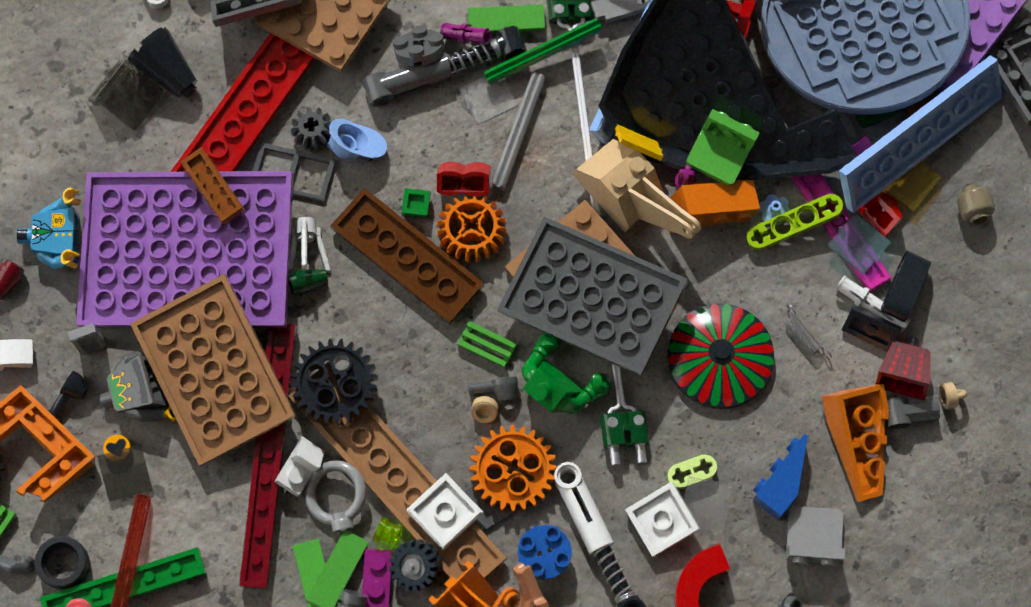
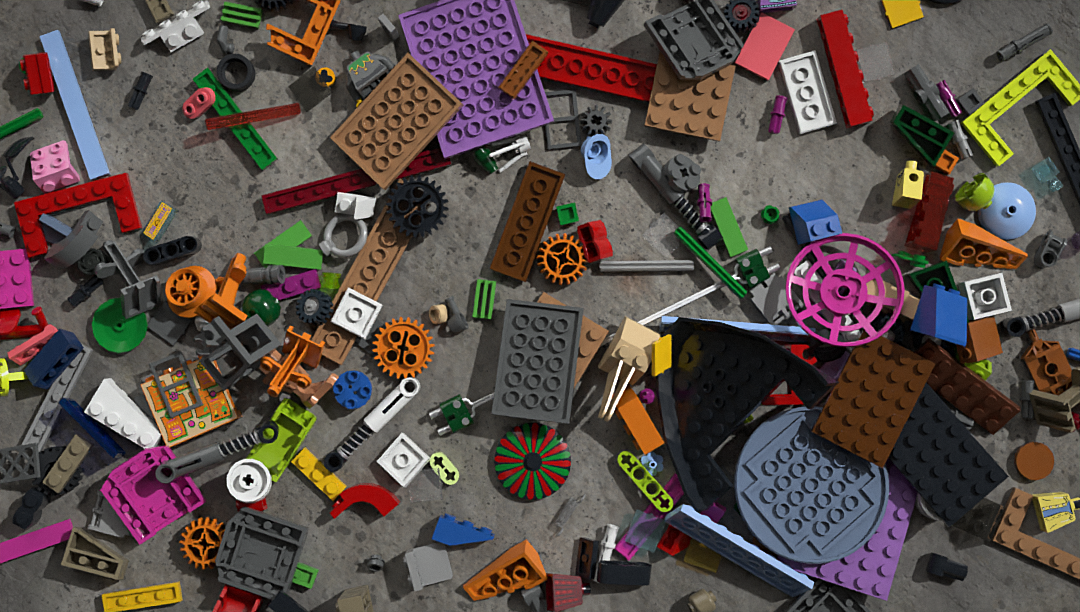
camera: 65 degrees right, 15 degrees up
(552, 387) = (466, 355): green torso -> none
(722, 147) = (676, 414): bright green bracket -> none

